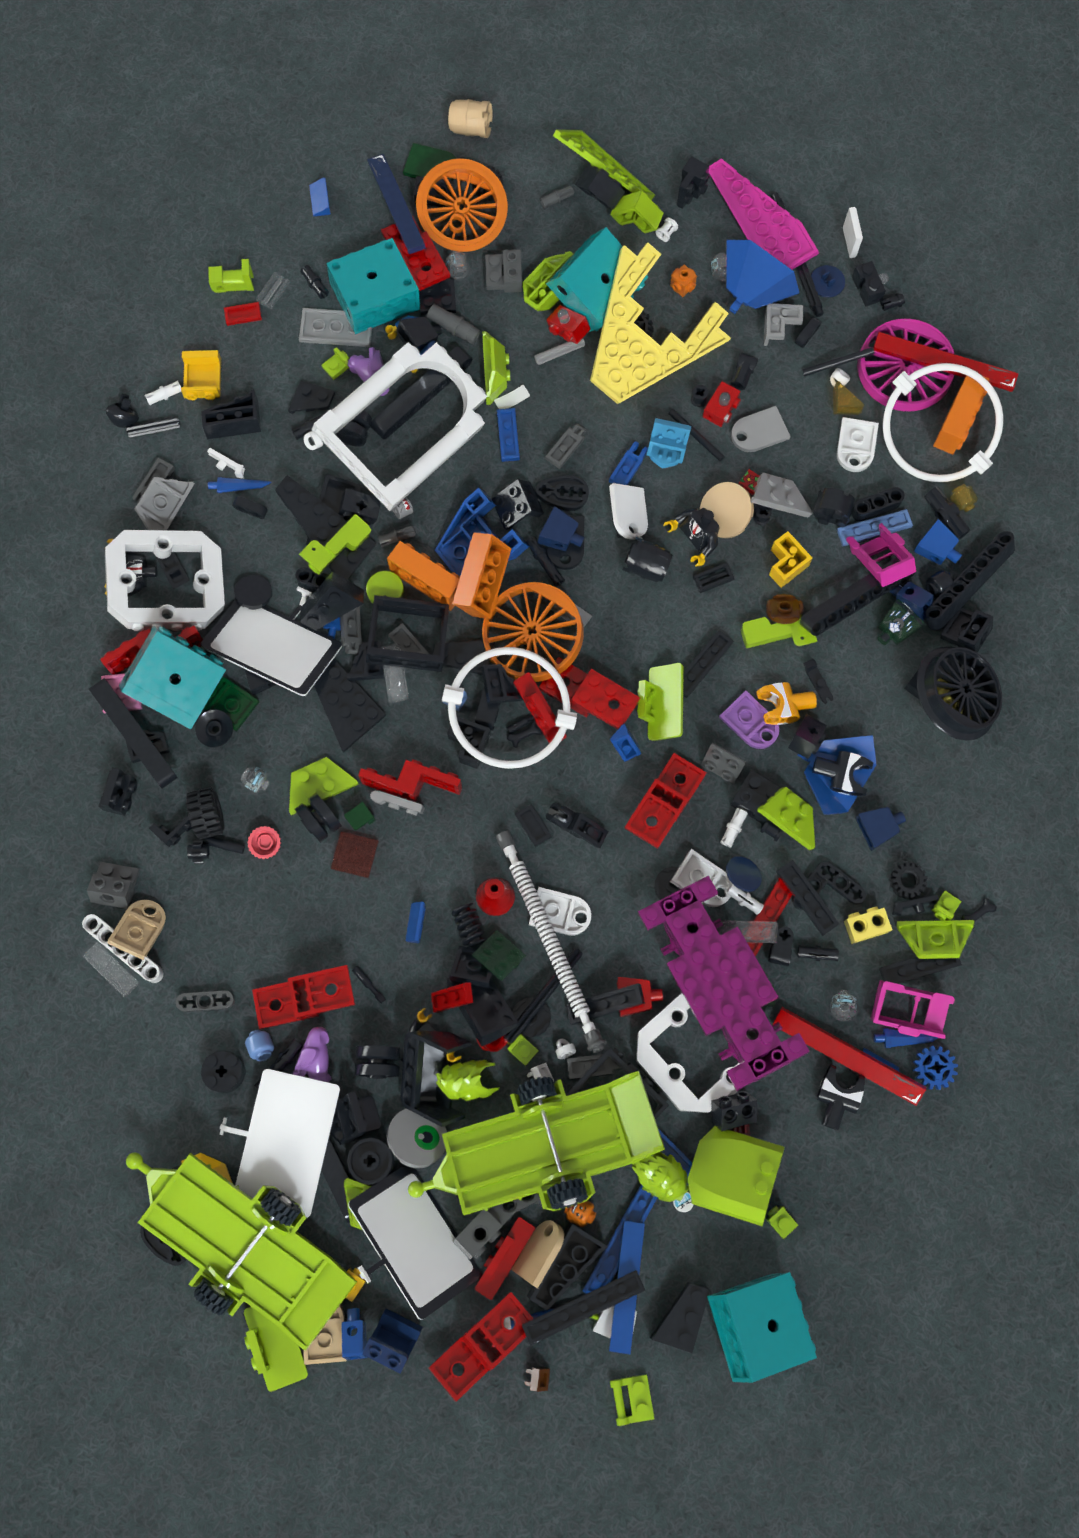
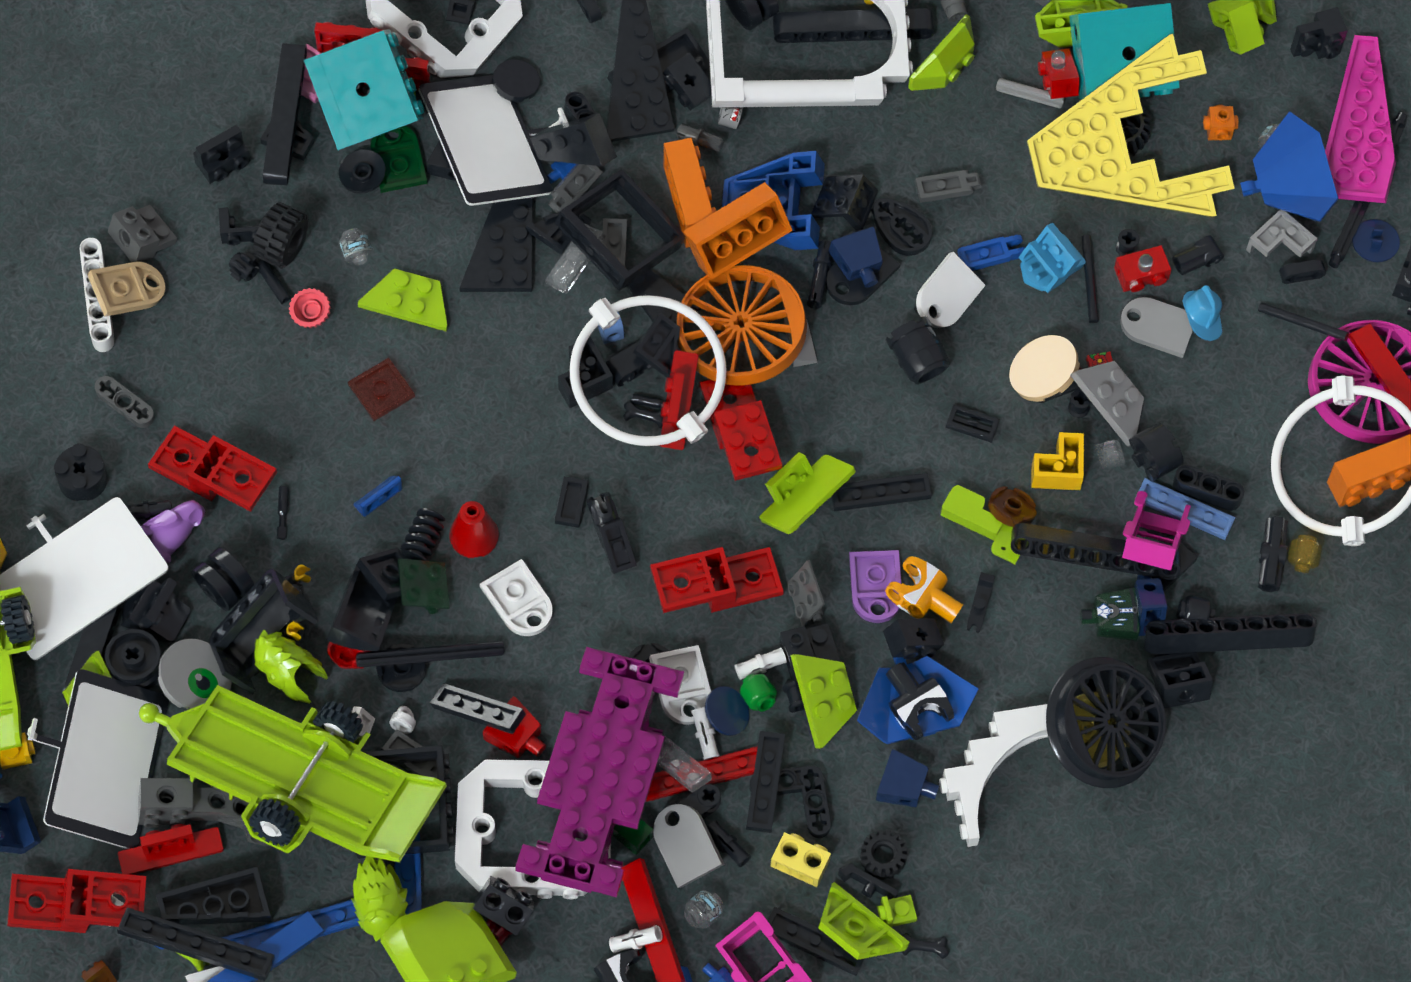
camera: 40 degrees right, 10 degrees down
(111, 969) = (69, 304): clear plate -> none
(259, 1045) = (134, 478): medium blue head -> none
(316, 818) = (374, 324): black wheel -> none
(349, 536) = (652, 98): lime piece -> none
(359, 816) = (417, 356): dark green panel -> none
(383, 584) = (646, 172): lime tile -> none
(395, 802) = (463, 373): light grey hinge -> none
(411, 780) = (494, 363): red bracket -> none
(452, 997) = (343, 580): red tile -> none
(508, 434) = (901, 131): blue tile -> none
(512, 398) = (938, 101): white sticker -> none
(522, 1049) = (364, 686): lime bracket -> none
(539, 1252) = (205, 868): tan tile -> none
(555, 952) = (482, 612): white hose -> none
(581, 1214) = (276, 870): orange head -> none
(625, 743) = (729, 497): blue slope -> none
(667, 229) = (1261, 59): white bush -> none
(685, 1204) = (376, 951): tile -> none
(700, 530) = (1000, 366): black torso -> none
(750, 846) = (758, 692): none -> green head
(778, 401) = (1203, 312): none -> dark azure piece
(799, 977) = (686, 846): none -> light grey tile
(805, 530) = (1109, 454): none -> clear tile
(816, 1069) = (635, 939): none -> white pin
(840, 376) = (1292, 340): white tile -> none
(845, 402) = (1272, 366): clear yellow slope -> none
(857, 442) = (1248, 414): white tile -> none
(909, 773) = (965, 783): none -> white arch
(939, 544) = (1232, 575): blue torso -> none

